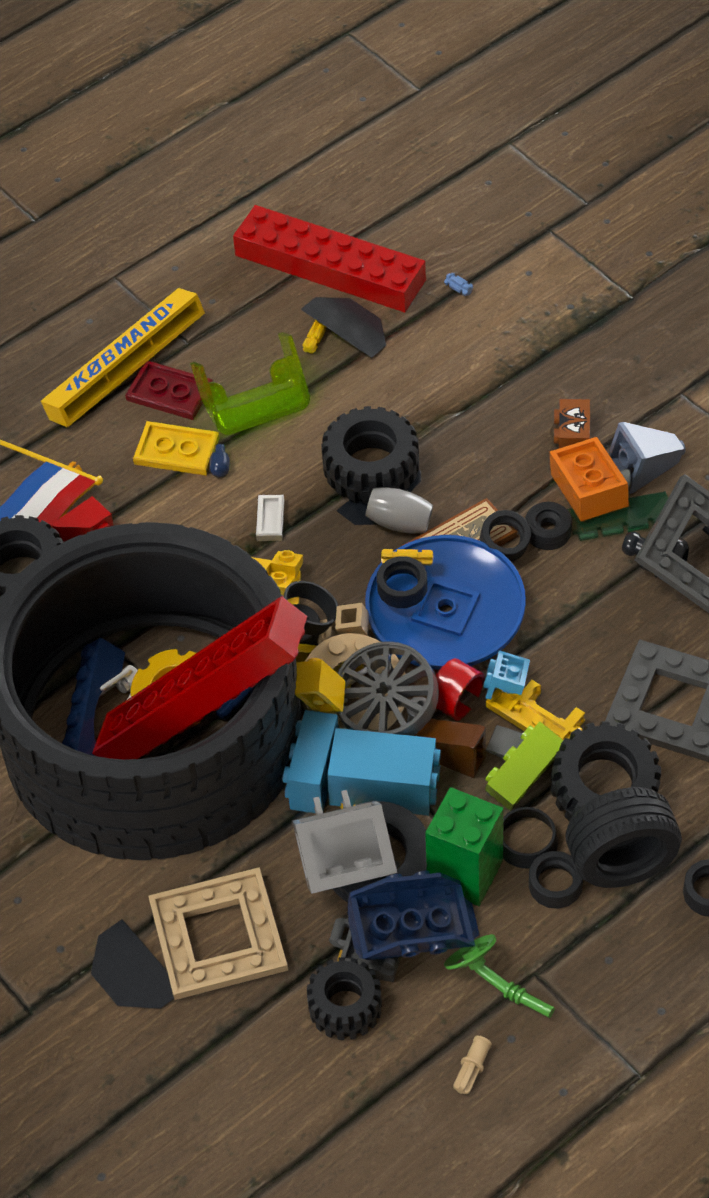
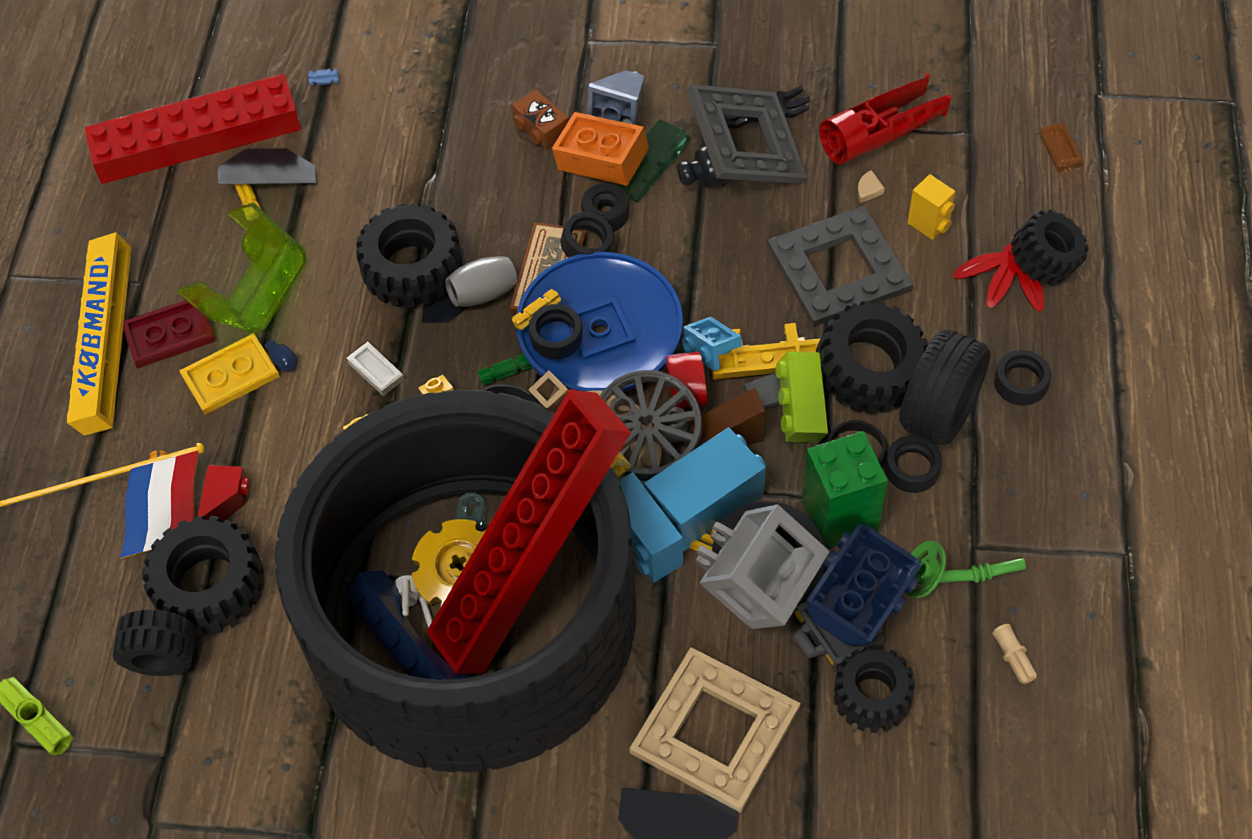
camera: 45 degrees left, 5 degrees up
(347, 583) = (503, 369): none -> green axle

